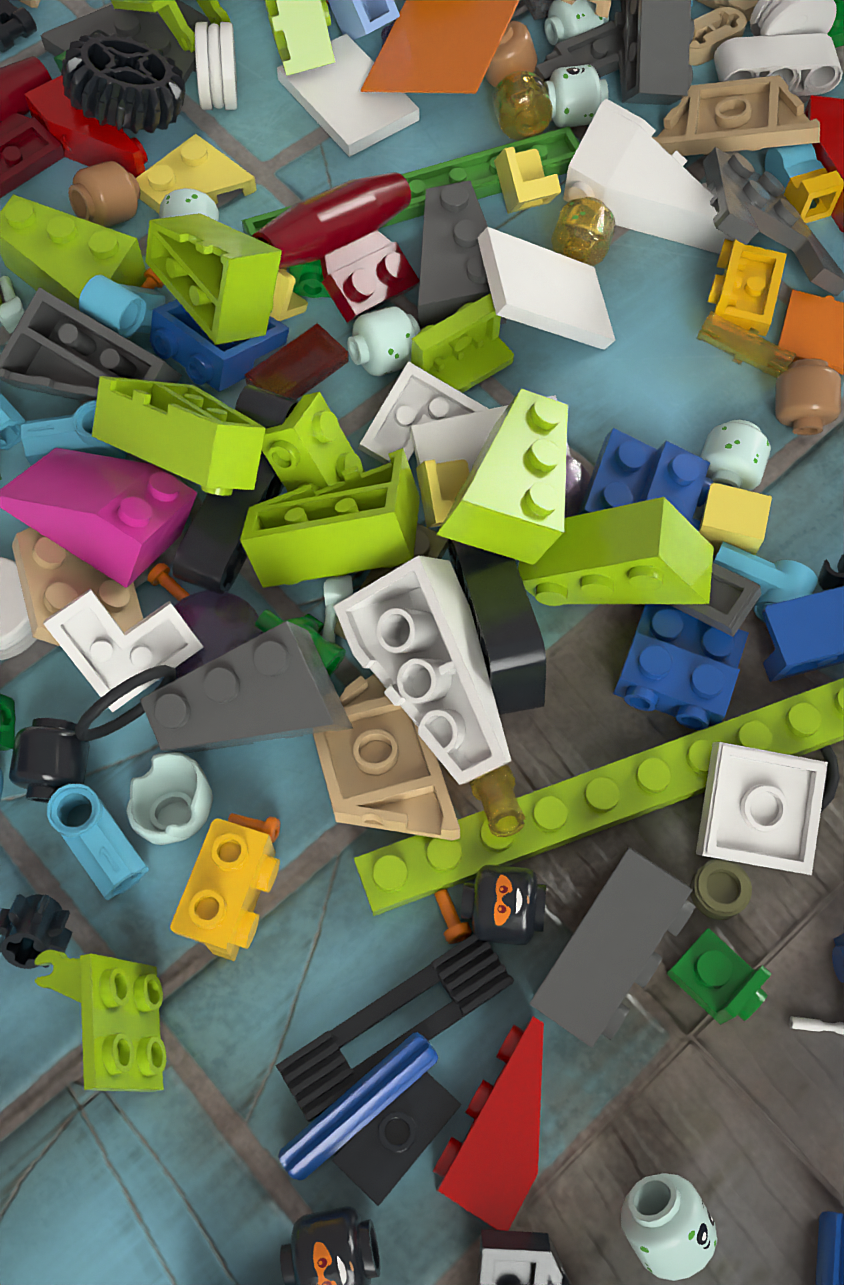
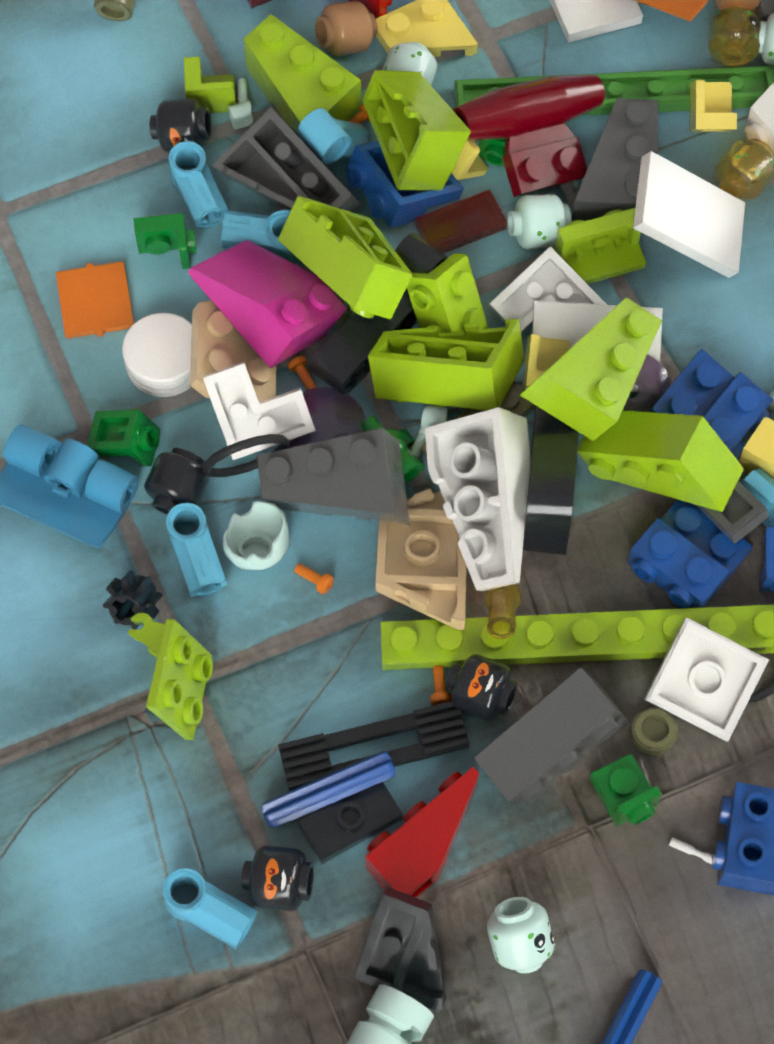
camera: 20 degrees right, 0 degrees up
(225, 888) = (280, 612): yellow bracket -> none

